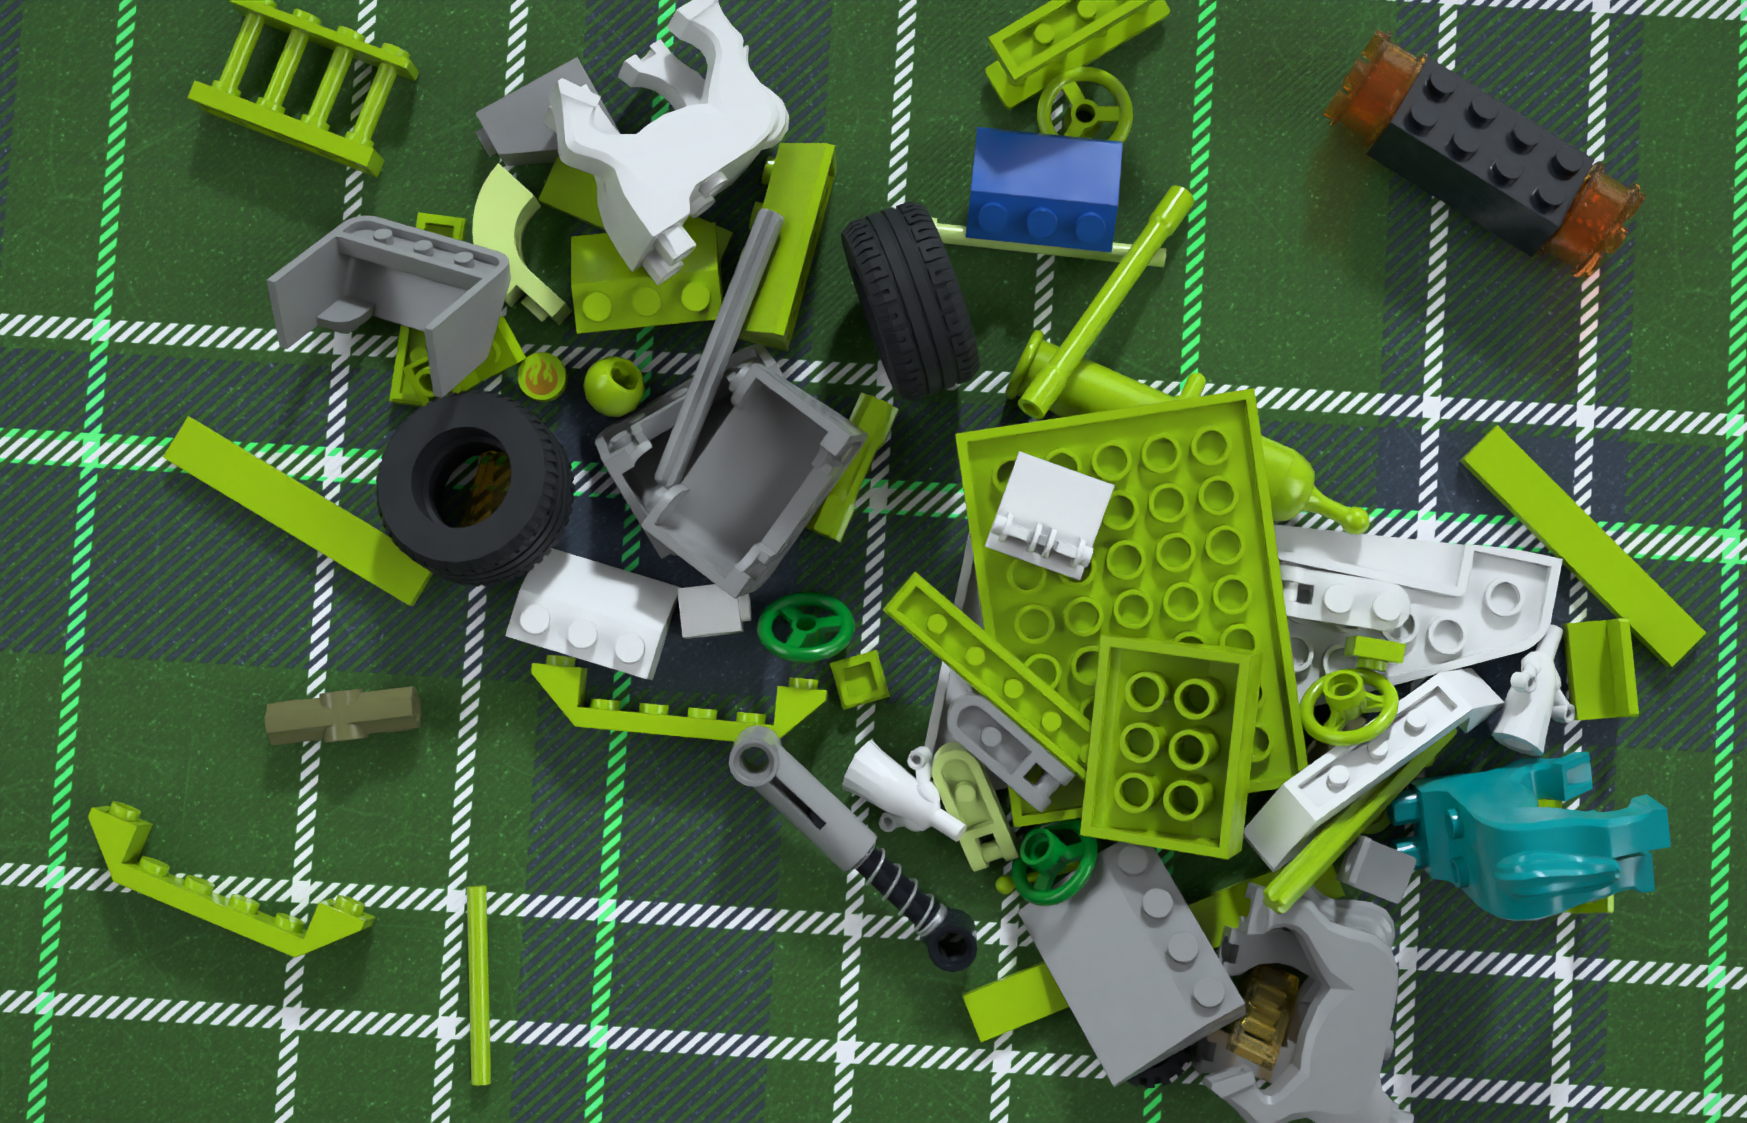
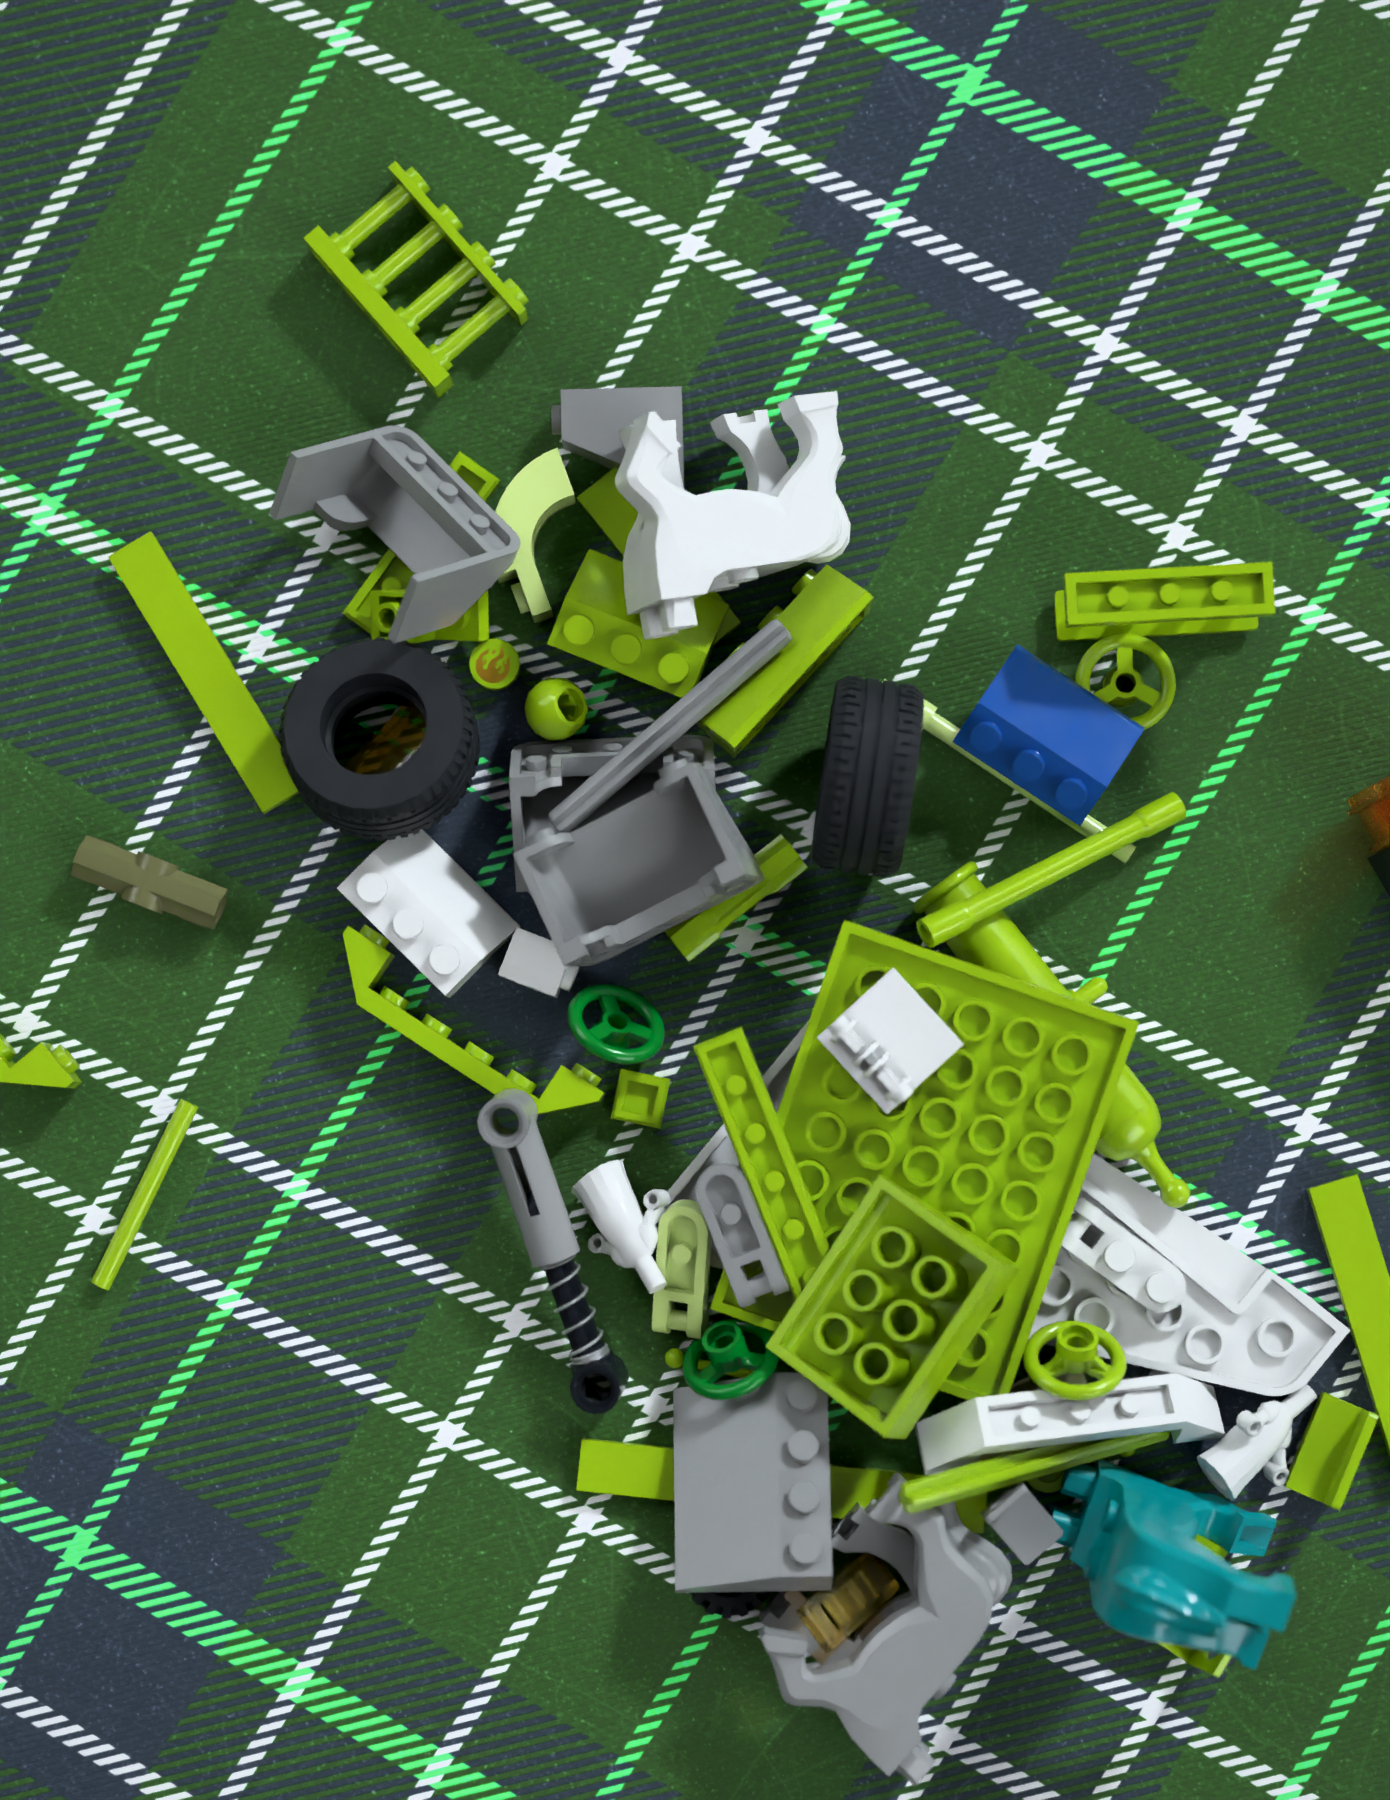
camera: 30 degrees right, 0 degrees up
(1374, 653) = (1125, 1324): lime plate -> none

